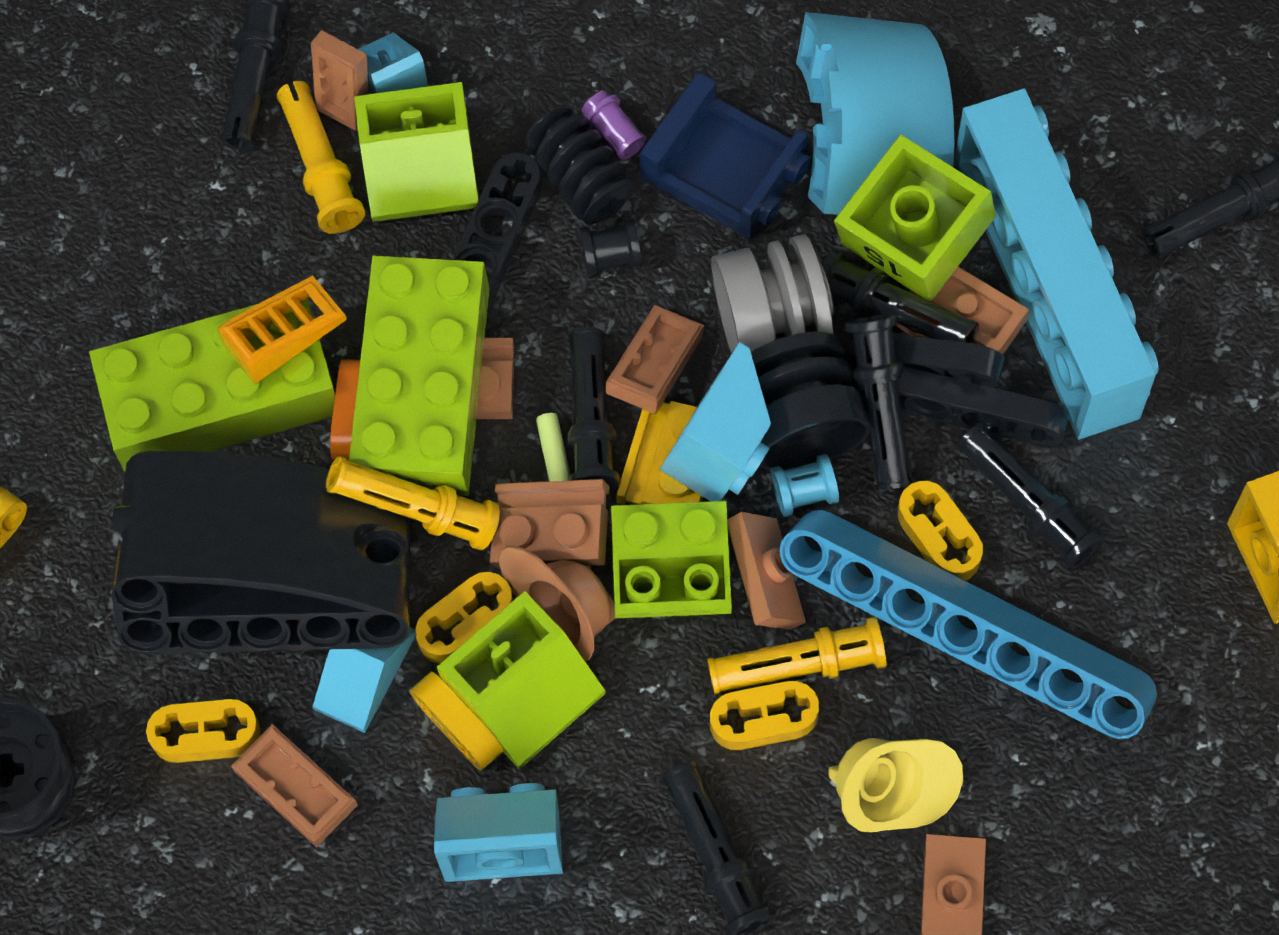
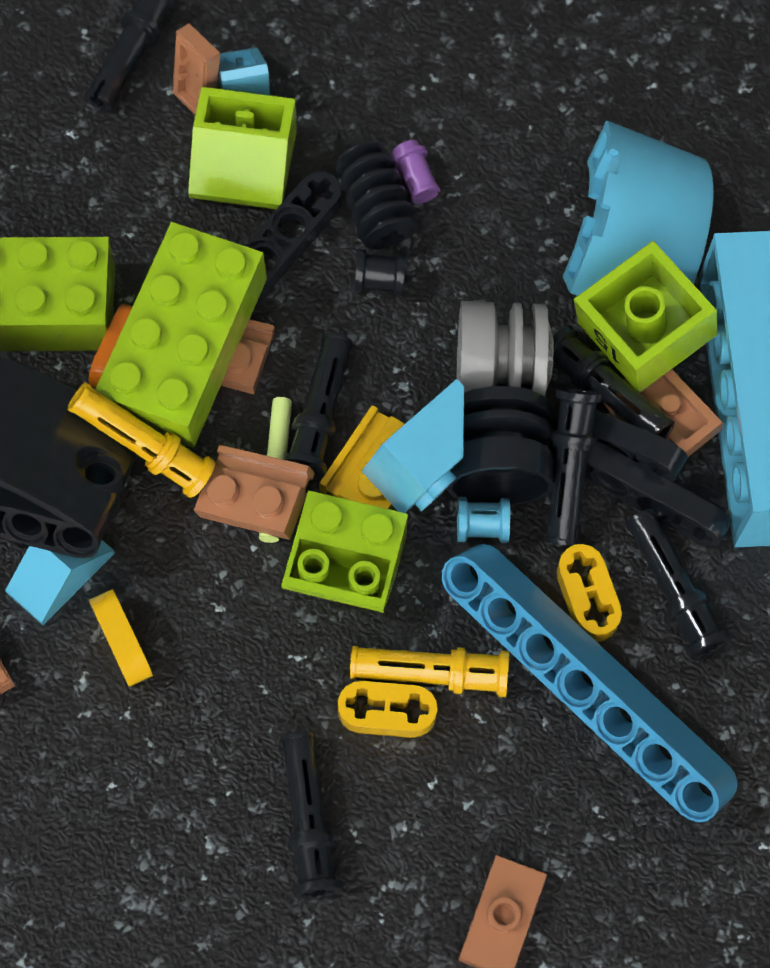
camera: 10 degrees right, 0 degrees up
(277, 352) = (63, 280): light orange slope -> none
(324, 175) = (160, 148): yellow pin -> none
(457, 607) = (162, 561): yellow beam -> none
(498, 833) = (122, 745): medium azure slope -> none
(522, 679) = (185, 618): lime slope -> none
(564, 591) = (245, 557): nougat piece -> none
(654, 359) = (388, 377): nougat plate -> none
(723, 159) = (499, 225): dark blue panel -> none
(765, 578) = (424, 595): nougat plate -> none
(897, 783) = (482, 802): light yellow piece -> none

